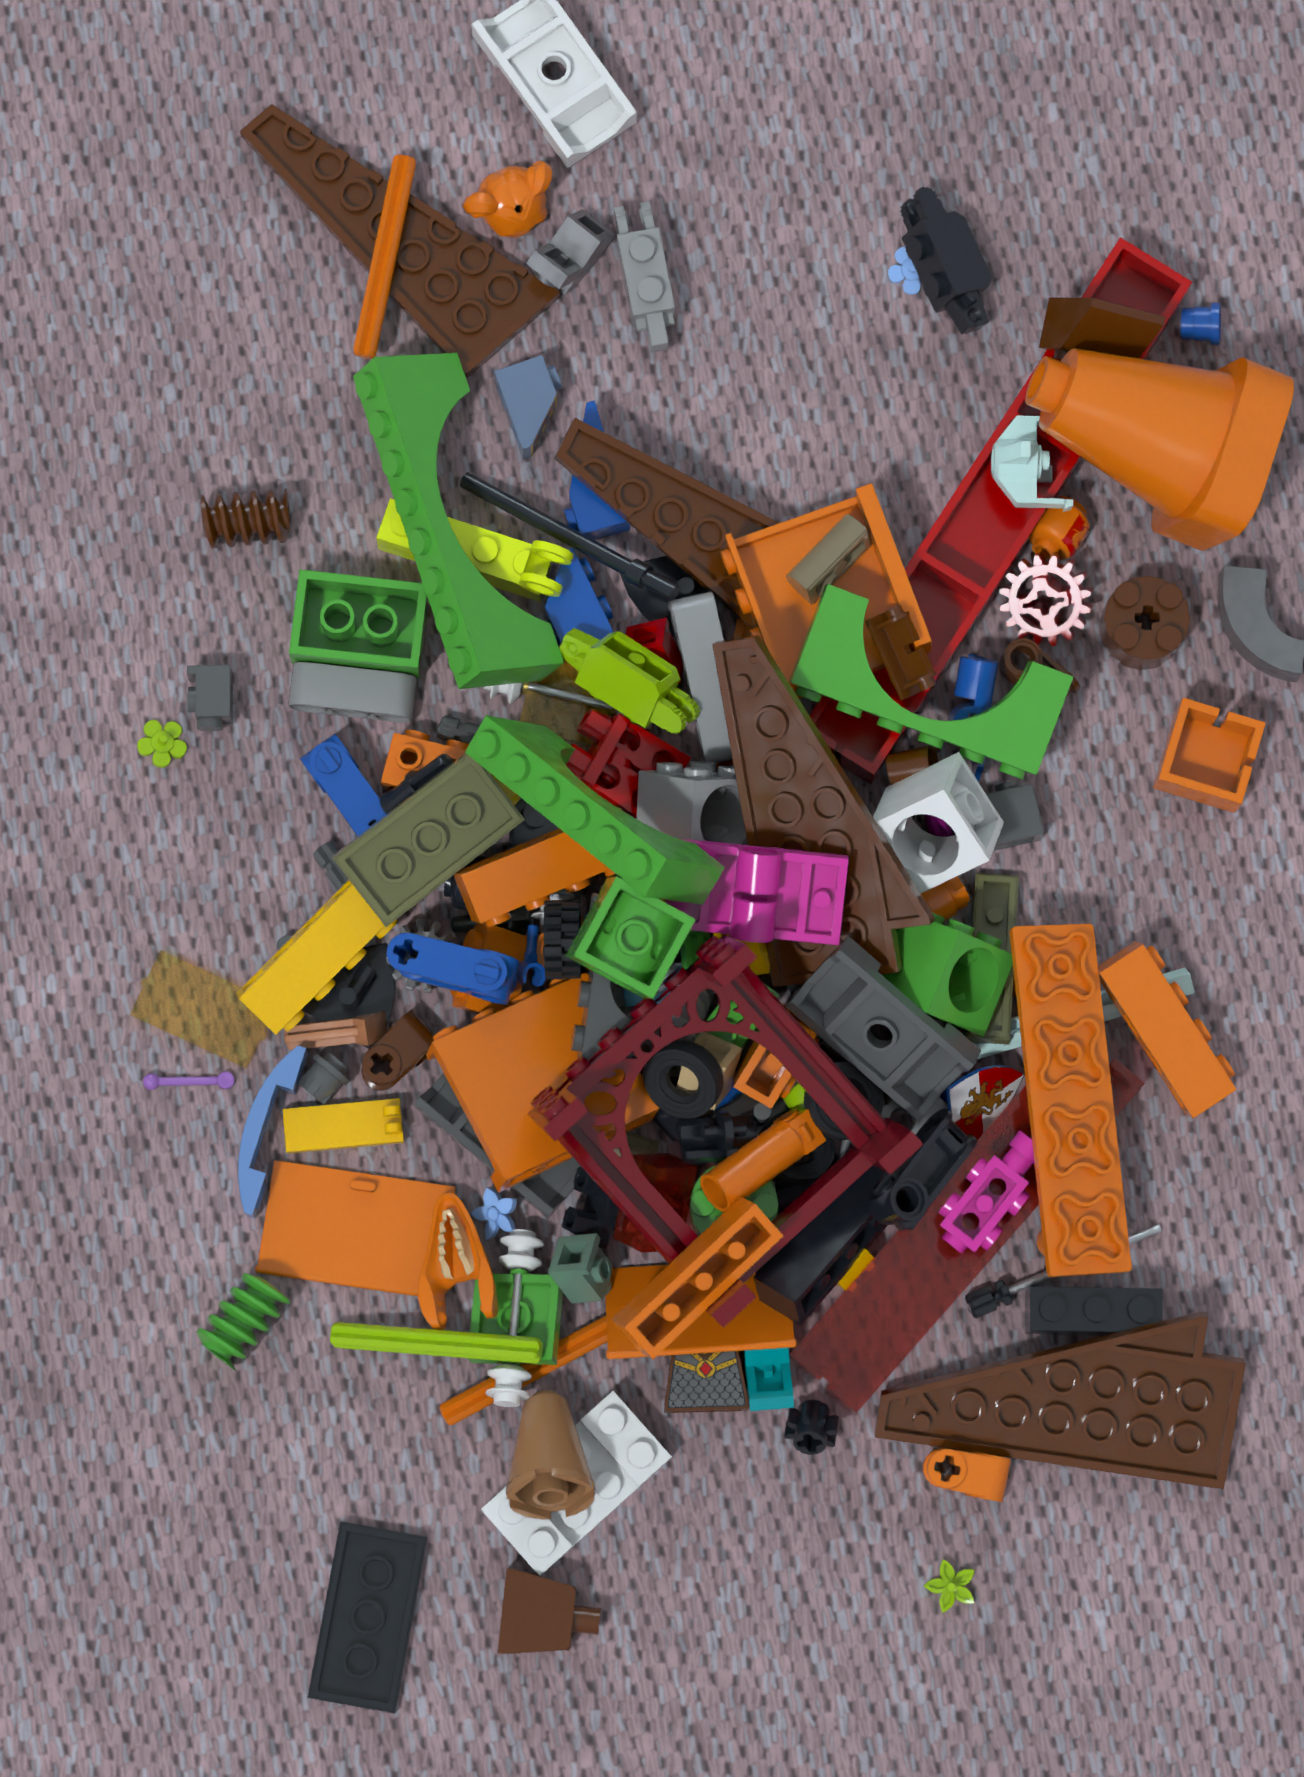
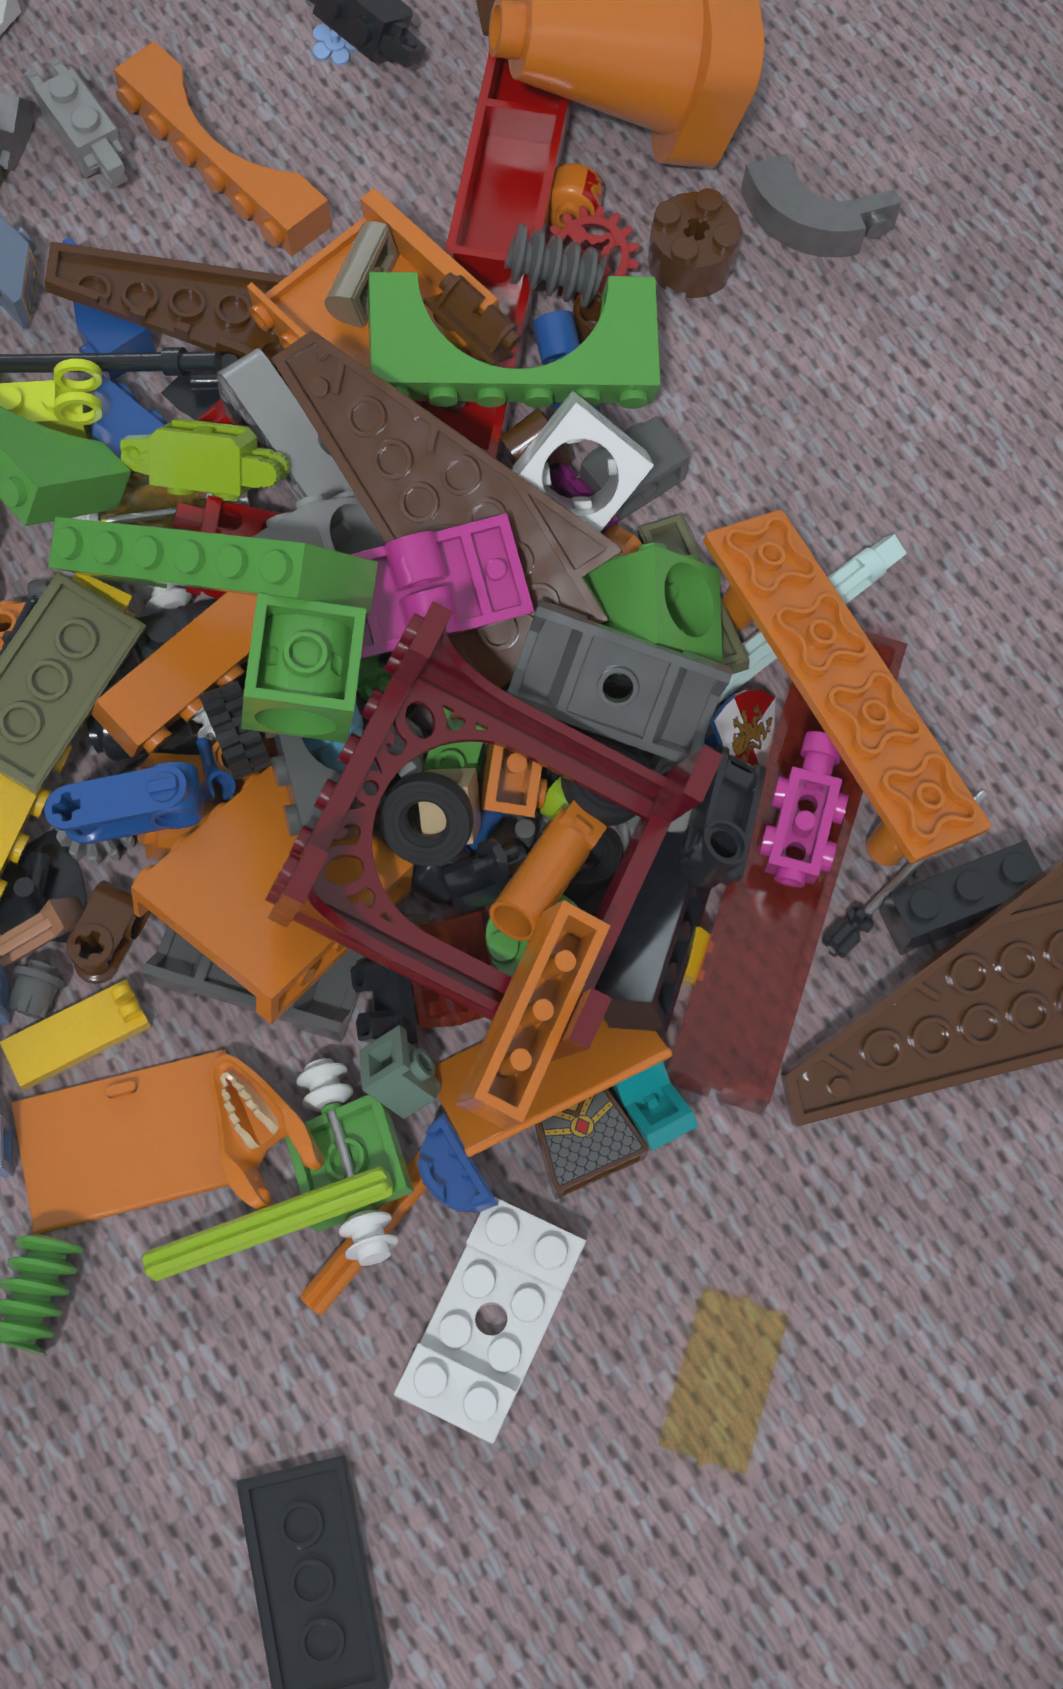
camera: 20 degrees left, 10 degrees down
(495, 1212) = (280, 1057): light blue plant -> none
(541, 1615) = (514, 1489): reddish brown torso -> none
(548, 1461) = (450, 1305): medium nougat cone -> none
(588, 1360) = (450, 1172): none -> blue tile
(732, 1603) = (723, 1381): none -> clear yellow piece
(794, 430) = (278, 201): none -> orange arch
(811, 1427) = (724, 1143): black gear -> none
(951, 1586) = (953, 1256): lime plant -> none
(974, 1474) = (920, 1122): orange piece -> none
(999, 615) = (554, 264): none -> dark grey piece
(1021, 463) = (510, 134): light aqua piece -> none
(1165, 1029) = (901, 591): orange brick -> none
(1204, 759) = (813, 344): orange piece -> none

